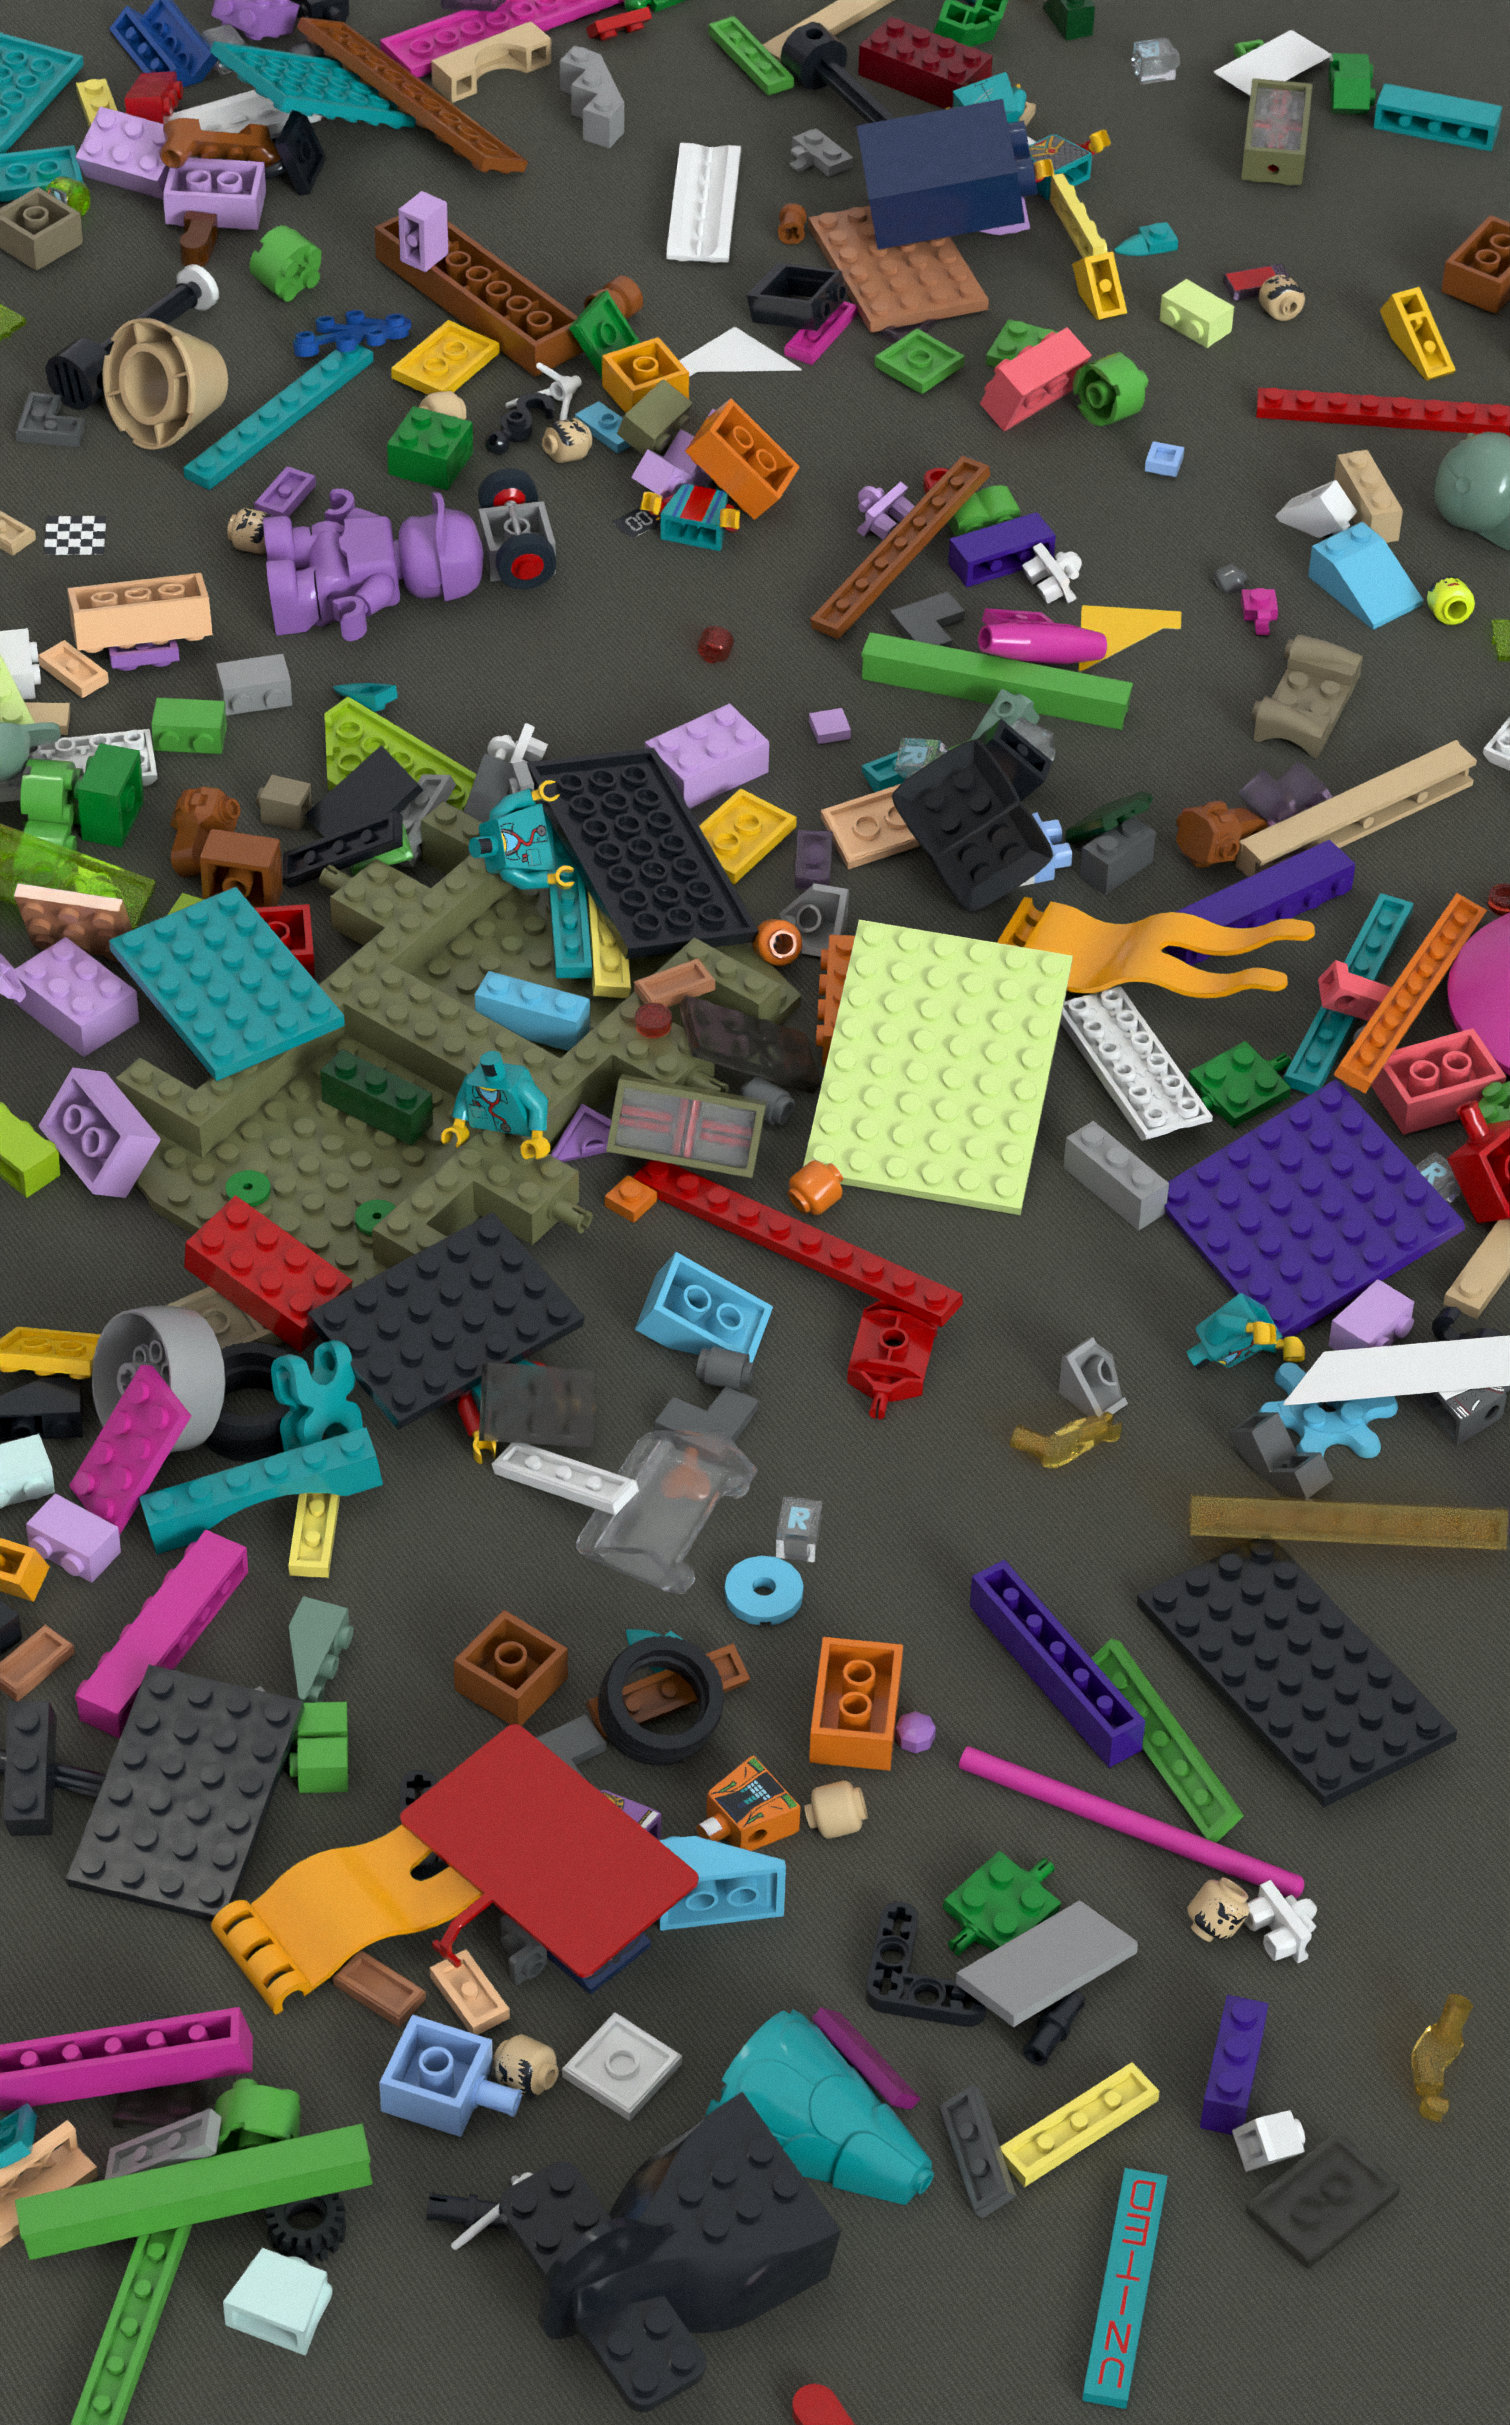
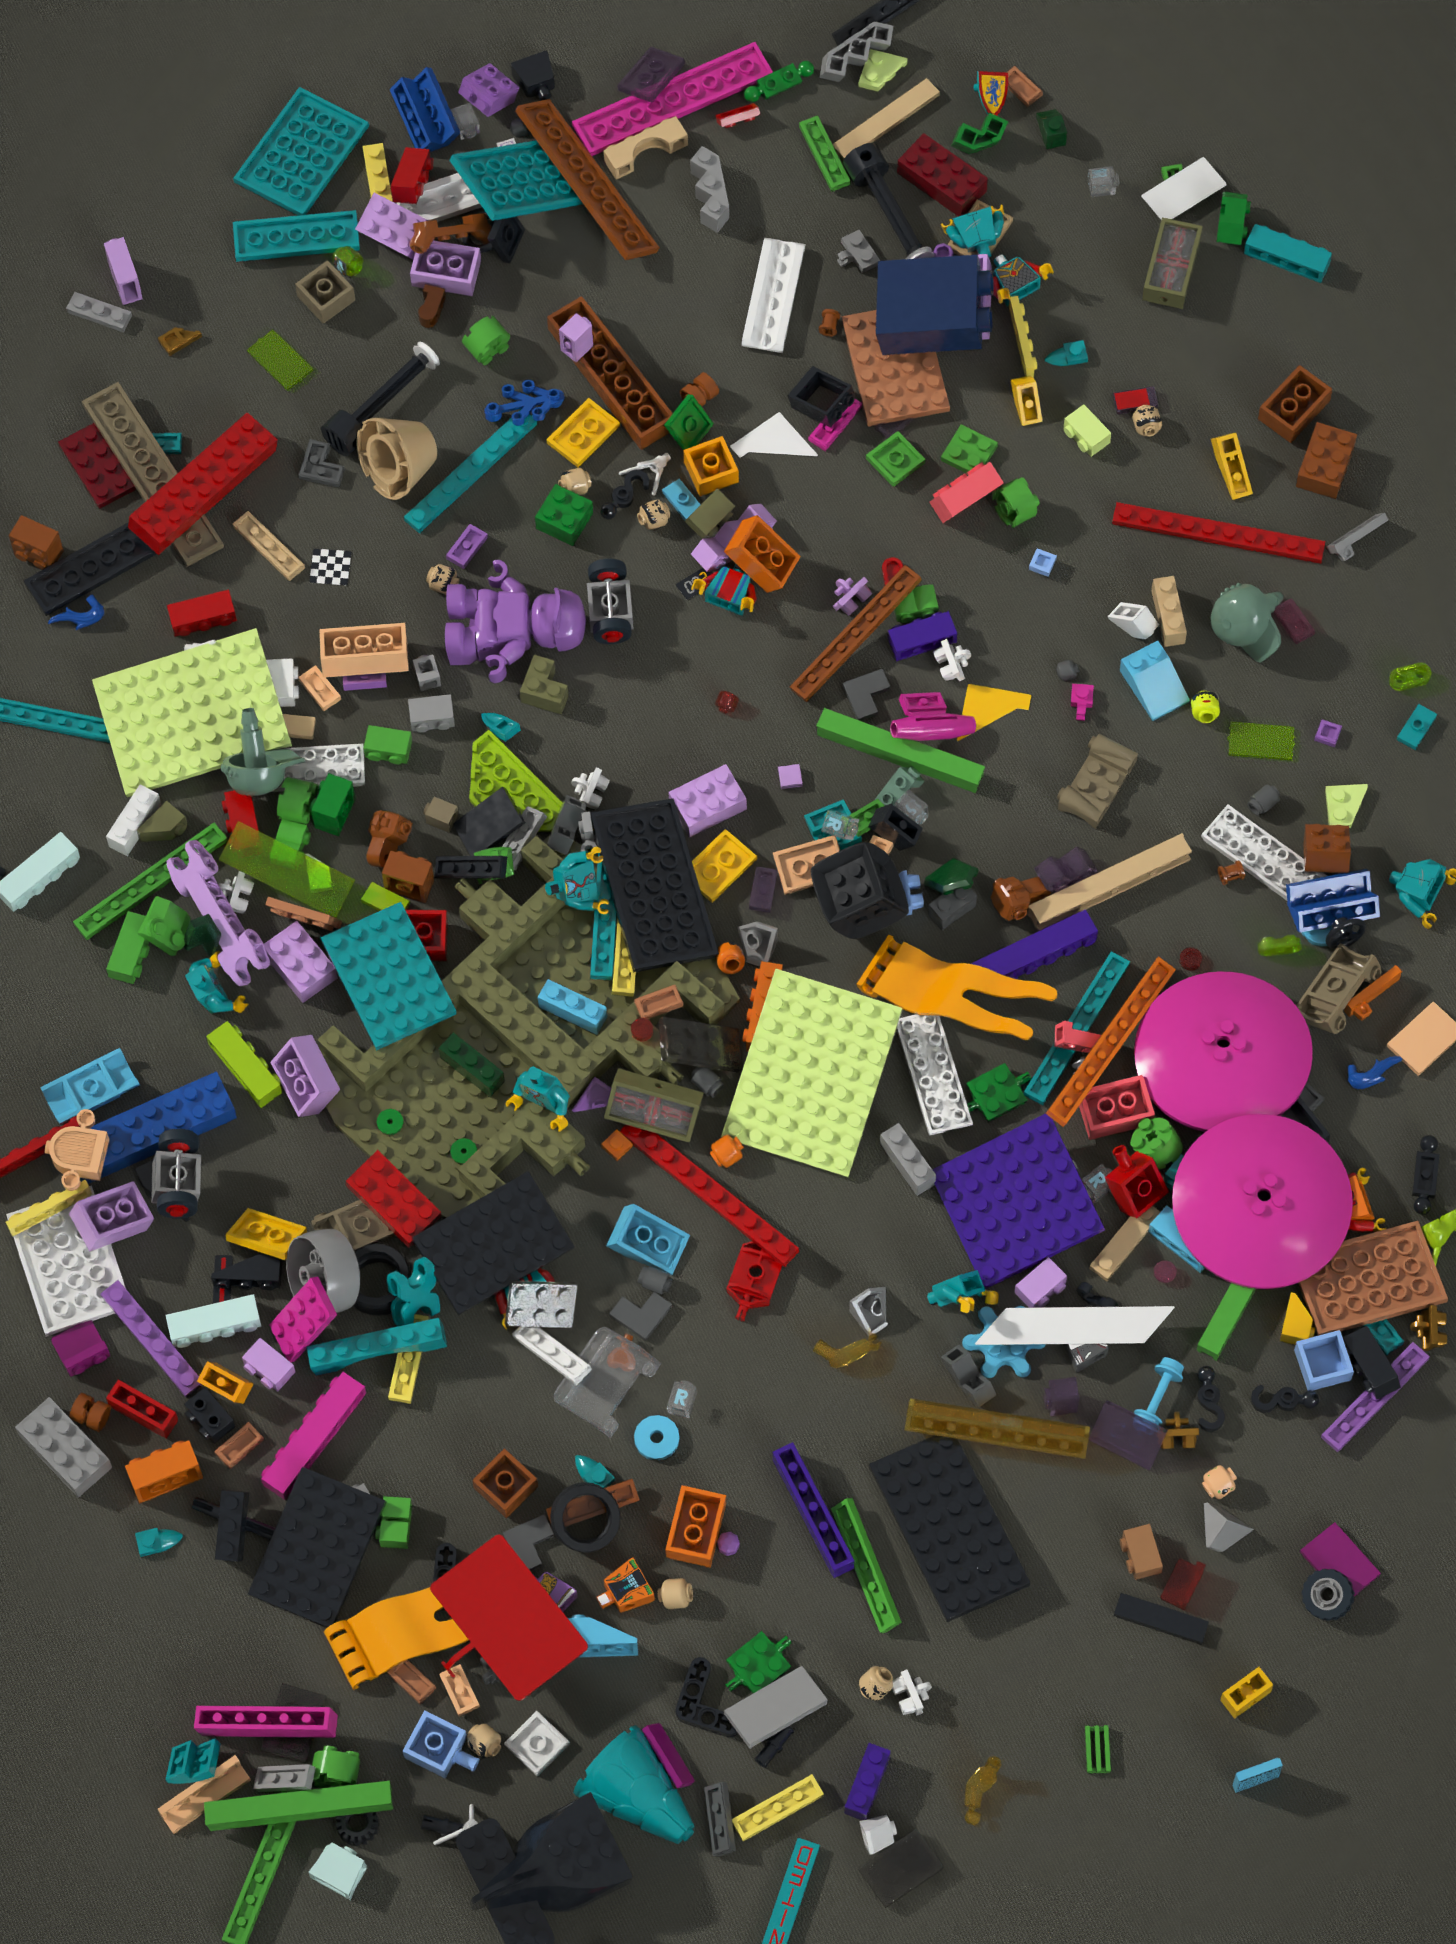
camera: 10 degrees right, 20 degrees up
(241, 636) = (426, 672): none -> light grey brick
(316, 1640) = (398, 1450): sand green slope -> none
(425, 645) = (539, 688): none -> olive brick
(1129, 1822) = (839, 1617): dark pink piece -> none
(1447, 1464) = (1061, 1396): none -> clear purple brick

